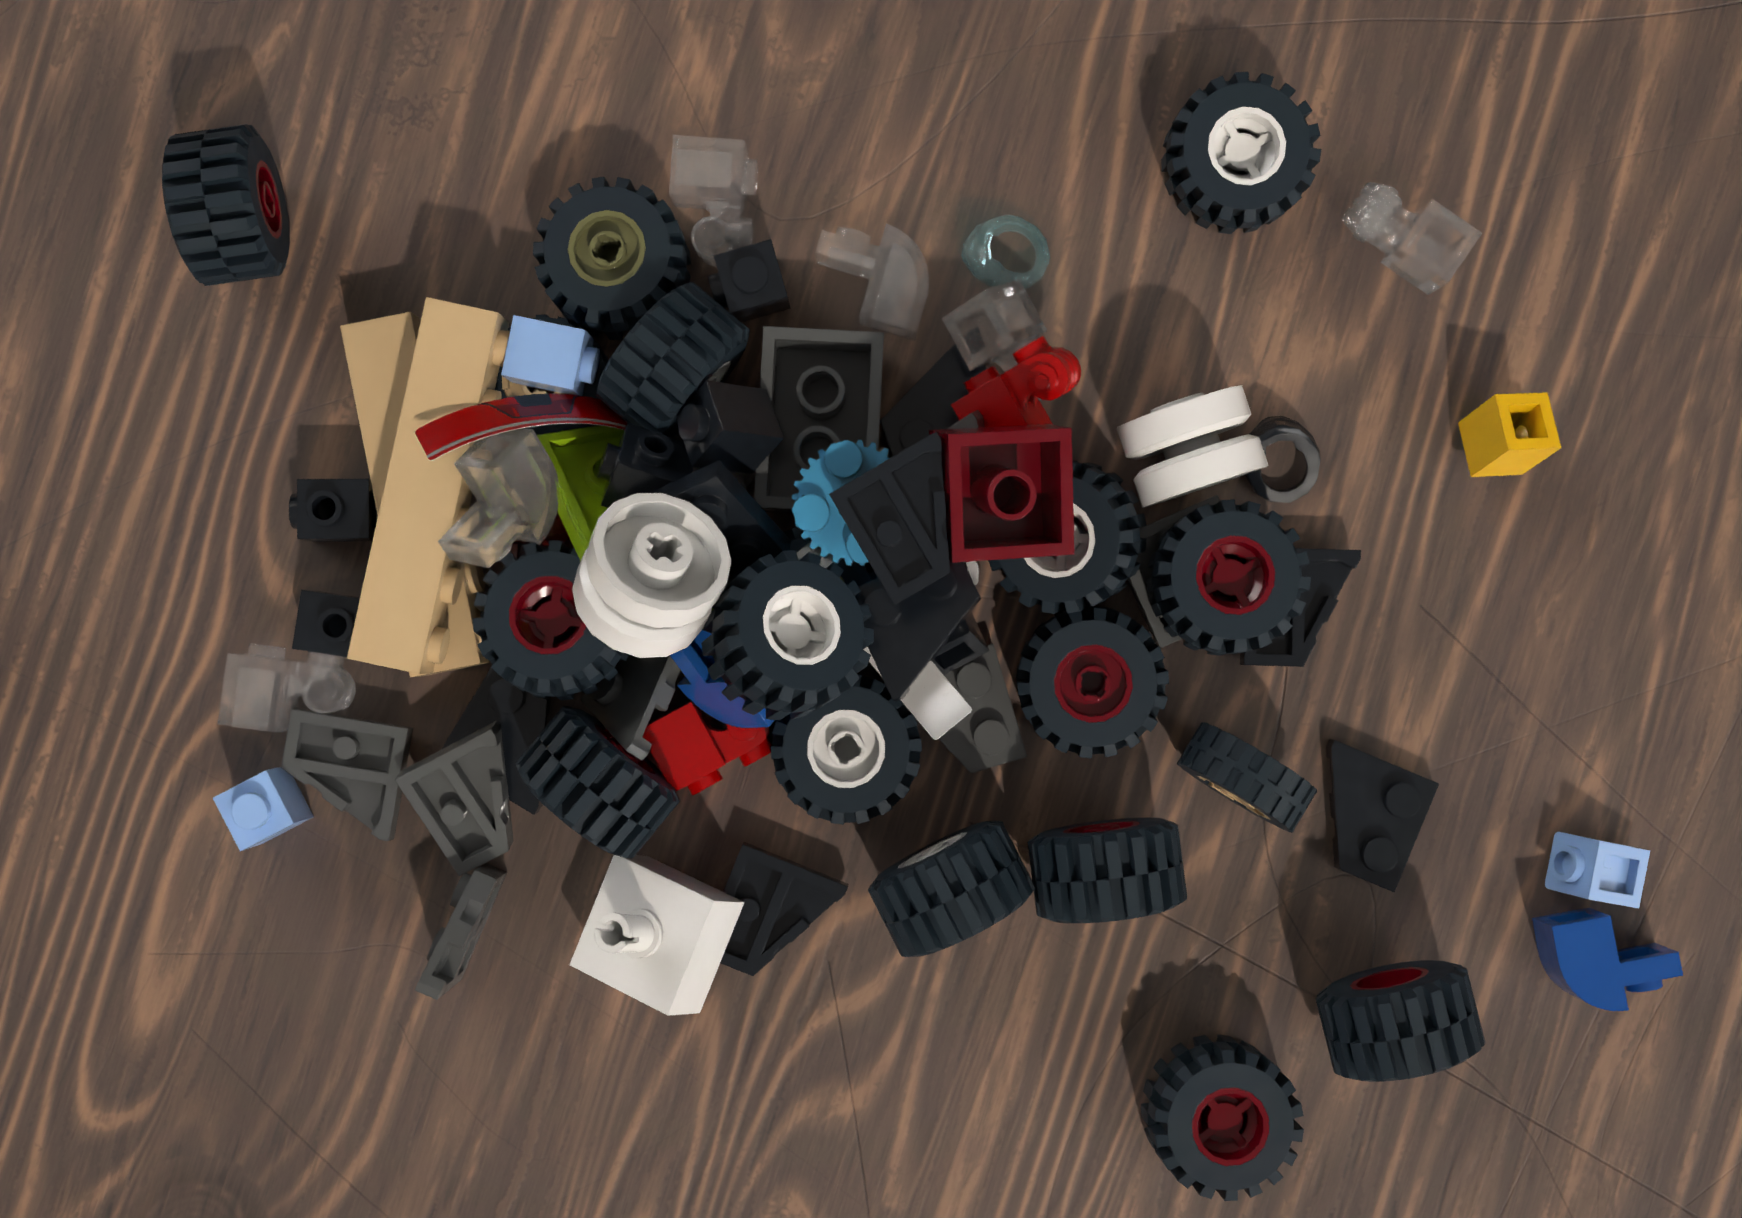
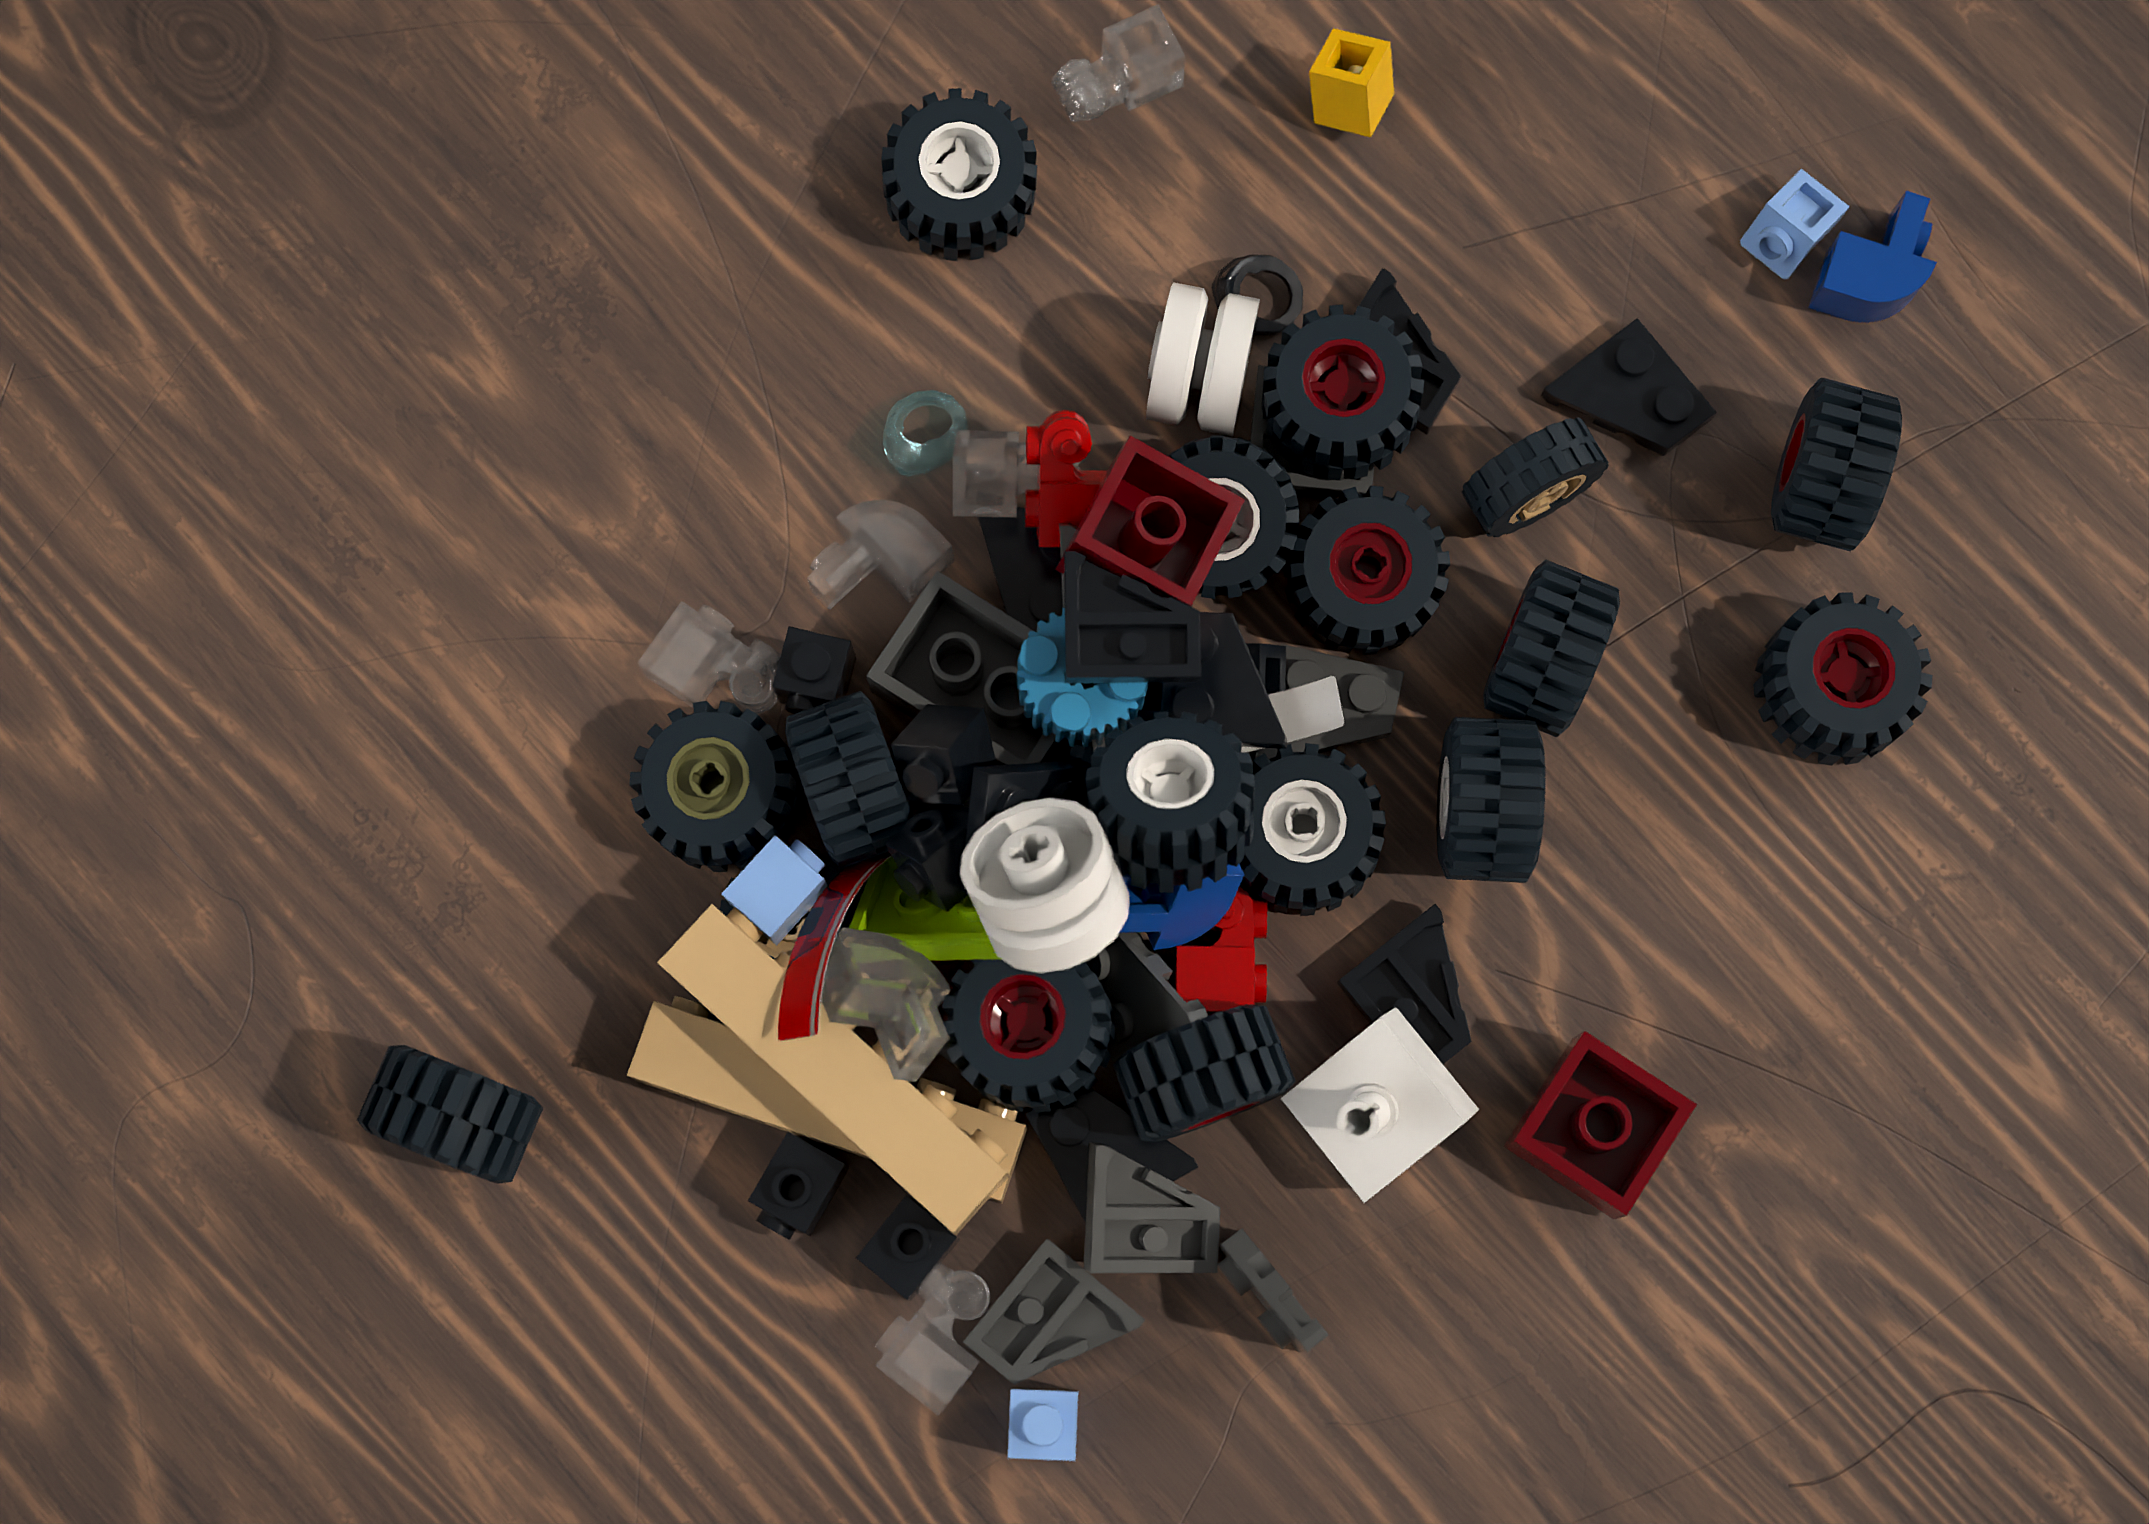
camera: 60 degrees left, 10 degrees down
(739, 1116) = (1600, 1125): none -> dark red brick

